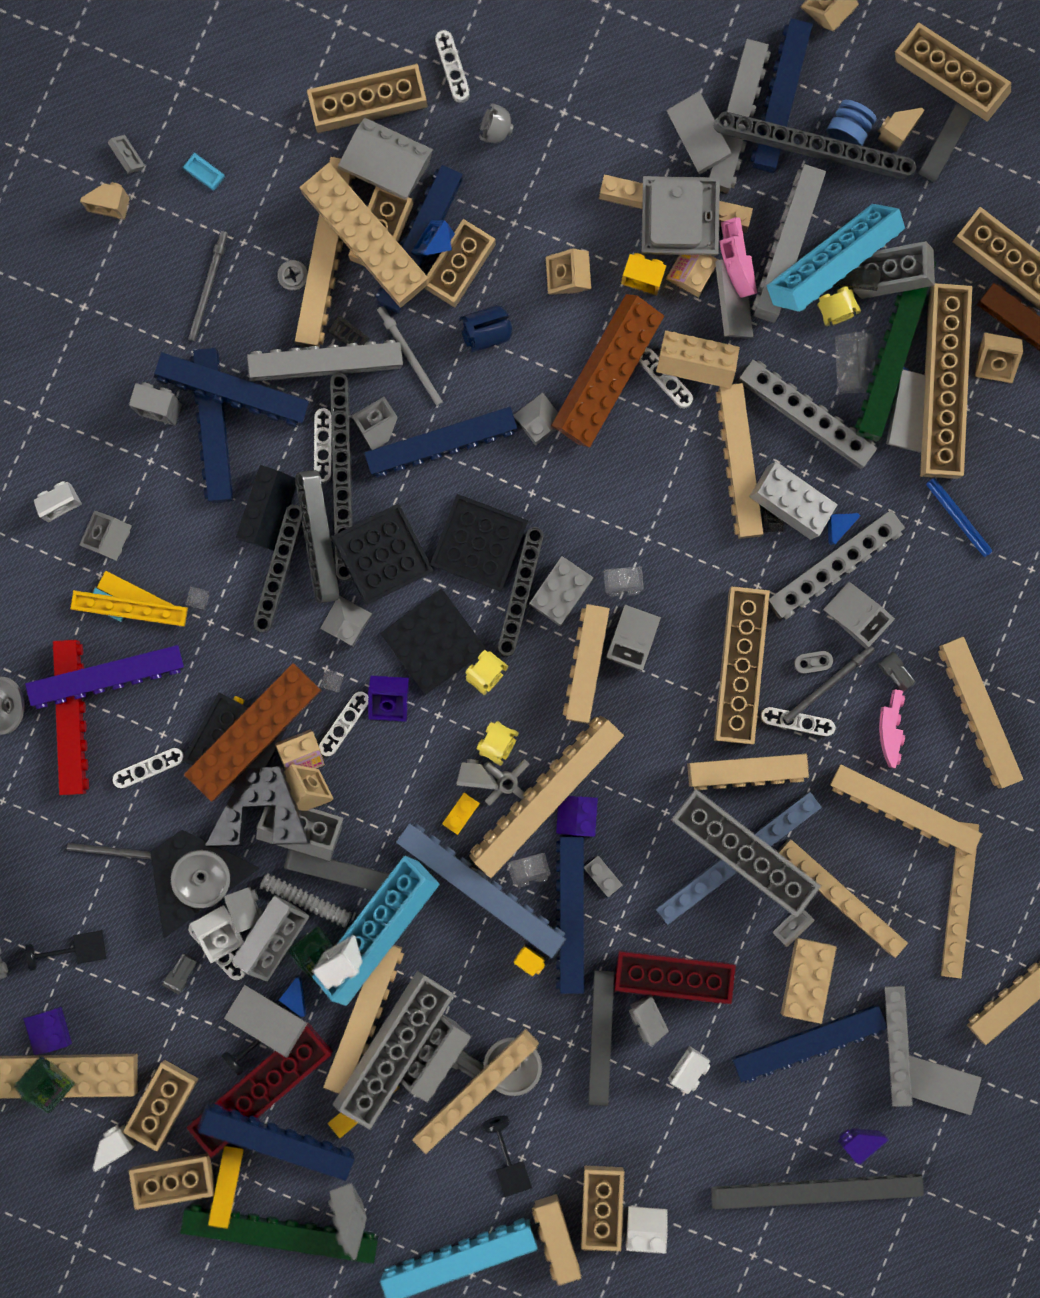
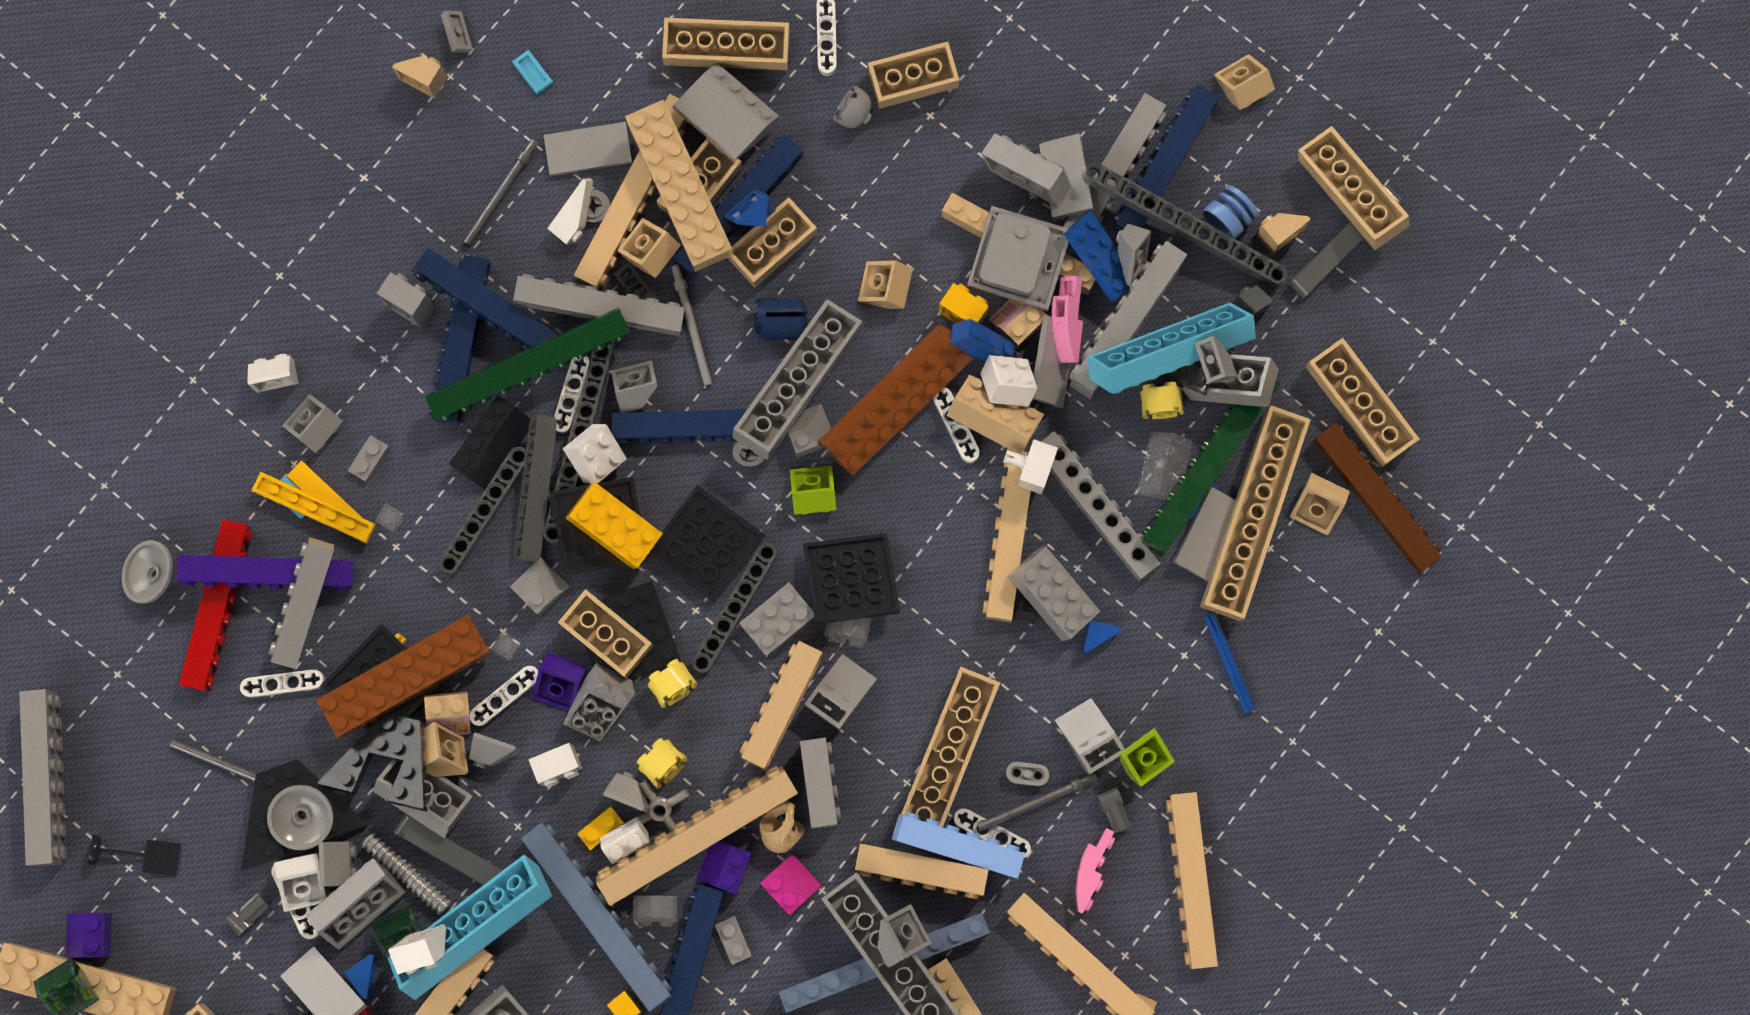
camera: 15 degrees right, 5 degrees down
(145, 694) = (302, 602): none -> light grey brick
(163, 552) = (368, 458): none -> light grey plate
(272, 226) = (587, 149): none -> light grey tile
(278, 290) = (573, 215): none -> white slope
(278, 430) = (526, 364): none -> dark green brick
(346, 775) = (490, 751): none -> light grey slope
(353, 298) = (649, 247): none -> tan brick
(360, 492) = (594, 453): none -> white brick
(396, 550) = (614, 525): none -> yellow brick
(407, 770) = (556, 765): none -> white brick
(416, 645) = (605, 634): none -> tan brick
(428, 705) = (599, 702): none -> light grey slope
(485, 818) = (624, 840): none -> white brick
(497, 456) = (751, 459): none -> light grey gear
(517, 377) = (797, 379): none -> light grey brick
(539, 80) = (913, 75): none -> tan brick
(558, 469) = (812, 490): none -> lime slope
(614, 537) = (851, 578): none -> black plate
(617, 775) = (783, 835): none -> tan helmet
(638, 721) = (818, 781): none -> light grey brick
(638, 814) = (791, 884): none -> dark pink slope
(664, 135) = (1026, 169): none -> light grey brick
(669, 299) = (980, 341): none -> blue brick
(702, 326) = (1008, 380): none -> white brick
(747, 394) = (1034, 466): none -> white brick
(749, 193) = (1098, 254): none -> blue plate
(751, 833) = (901, 936): none -> light grey slope
(774, 741) = (958, 846): none -> light blue brick
(776, 181) = (1133, 250): none -> light grey slope
(878, 257) = (1215, 360): none -> light grey slope
(888, 521) = (1149, 644): light grey brick -> none
(893, 195) = (1254, 300): none -> dark grey slope
(913, 620) = (1146, 758): none -> lime slope

